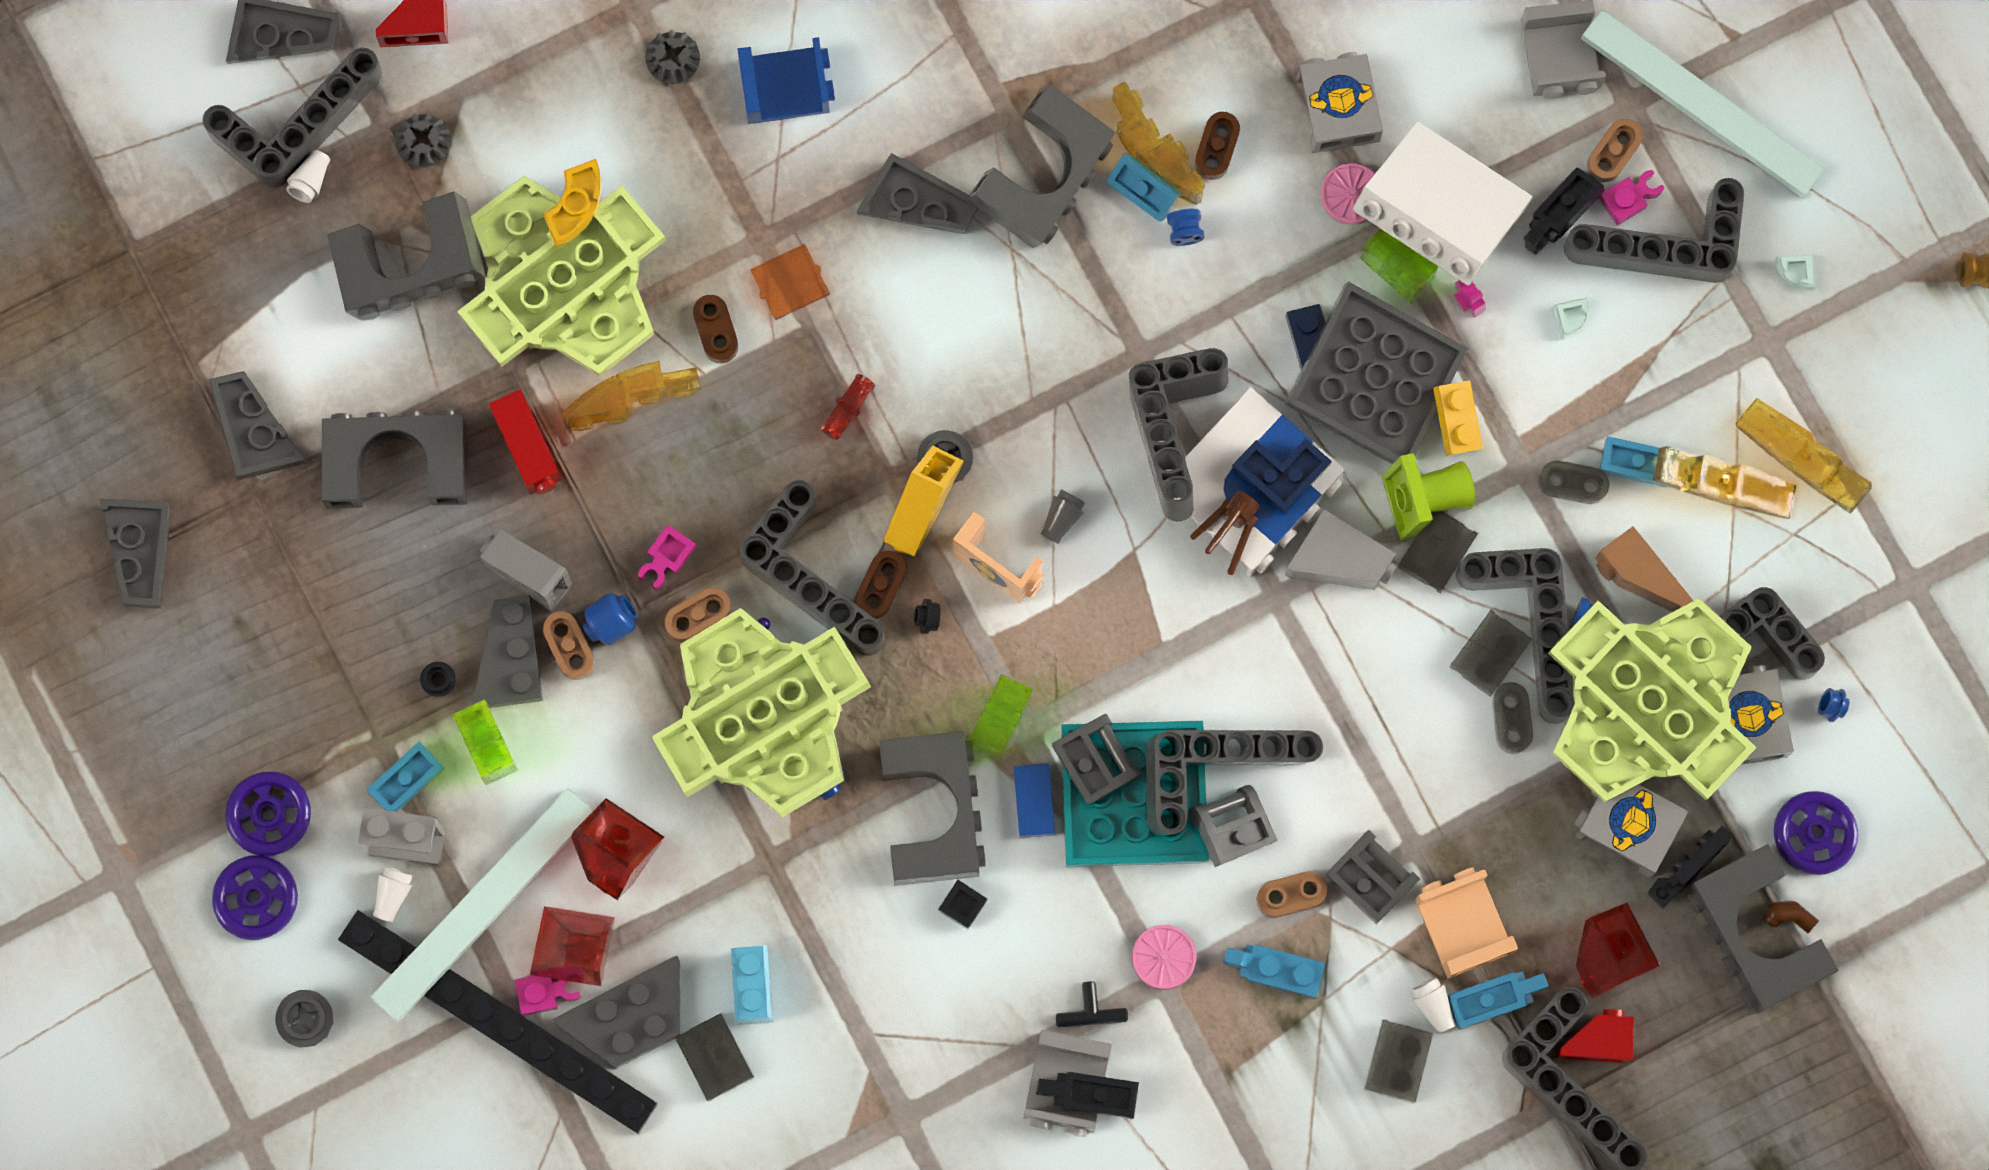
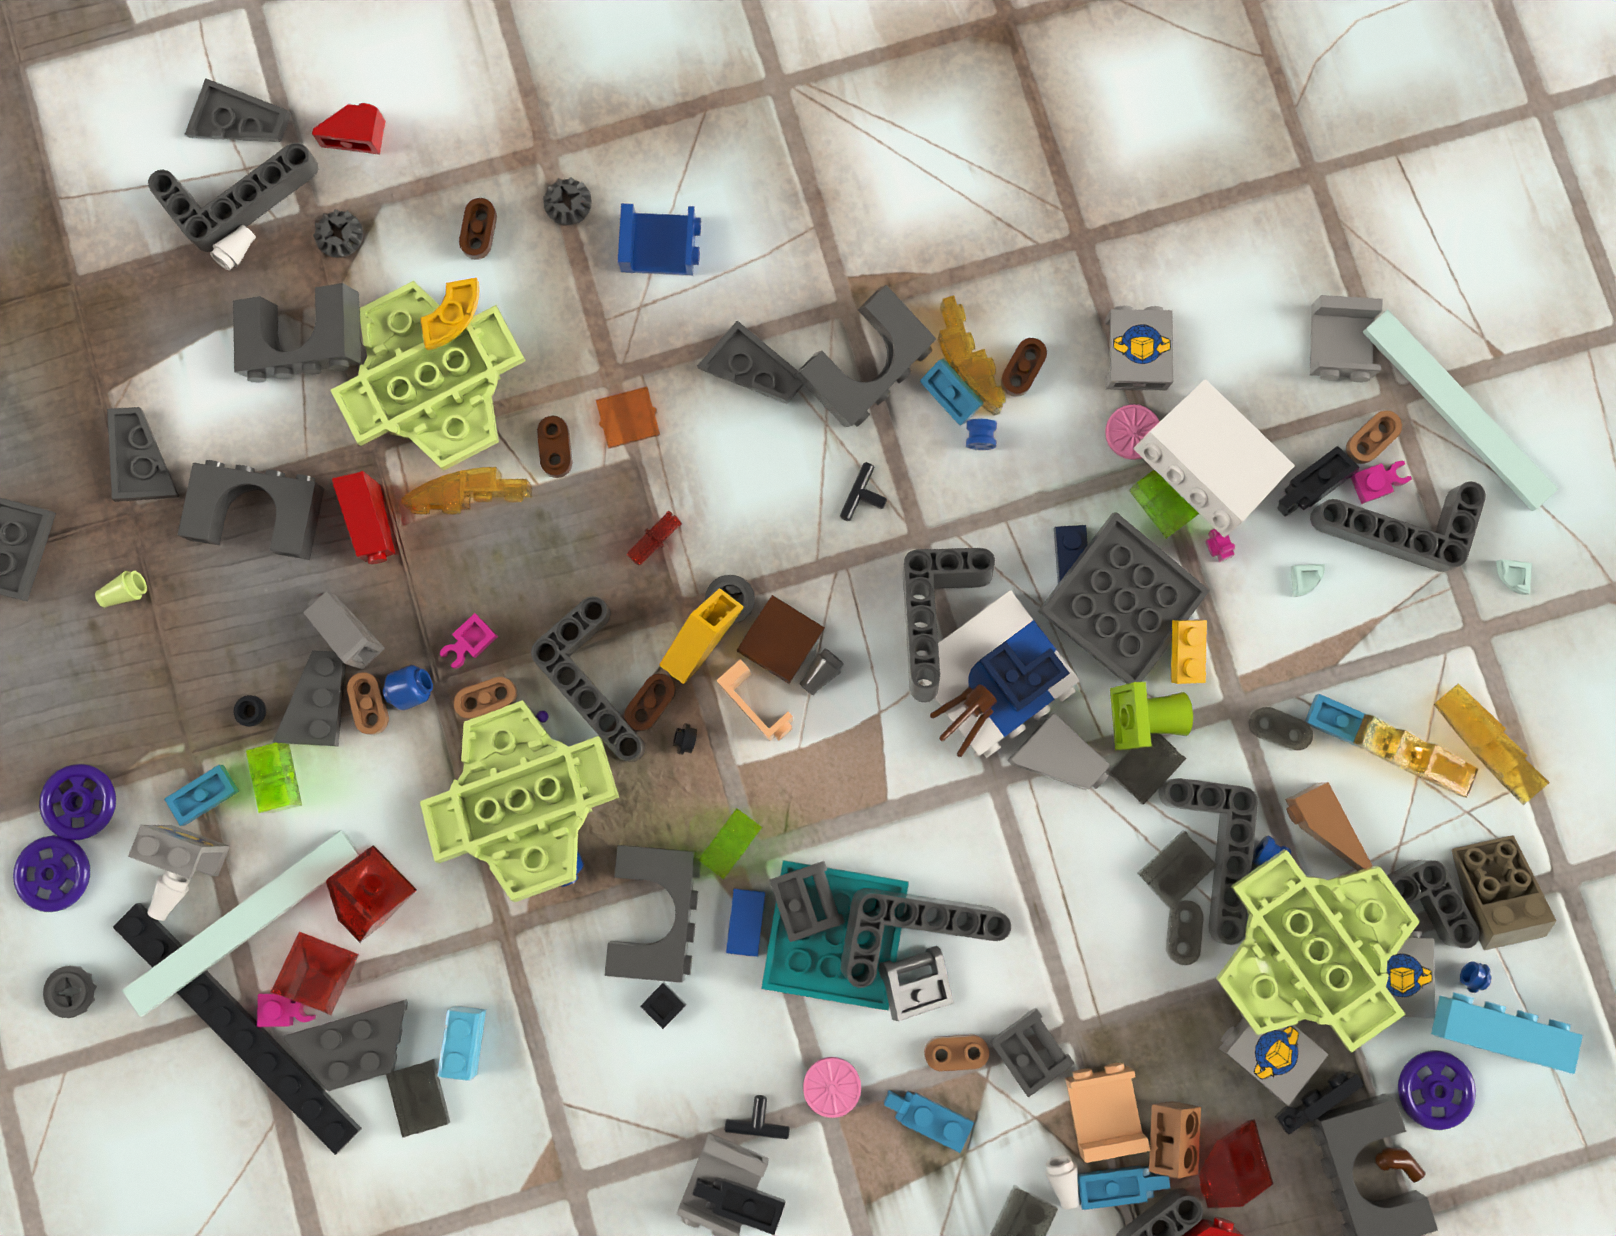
camera: 15 degrees right, 5 degrees up
(266, 574) = (122, 589): none -> yellowish green cone
(579, 107) = (477, 230): none -> reddish brown plate
(1010, 490) = (780, 639): none -> reddish brown slope
(1064, 316) = (859, 493): none -> black piece
(1543, 933) = (1174, 1139): none -> medium nougat brick
(1844, 611) = (1502, 893): none -> dark tan slope
(1869, 749) = (1507, 1034): none -> medium azure wedge

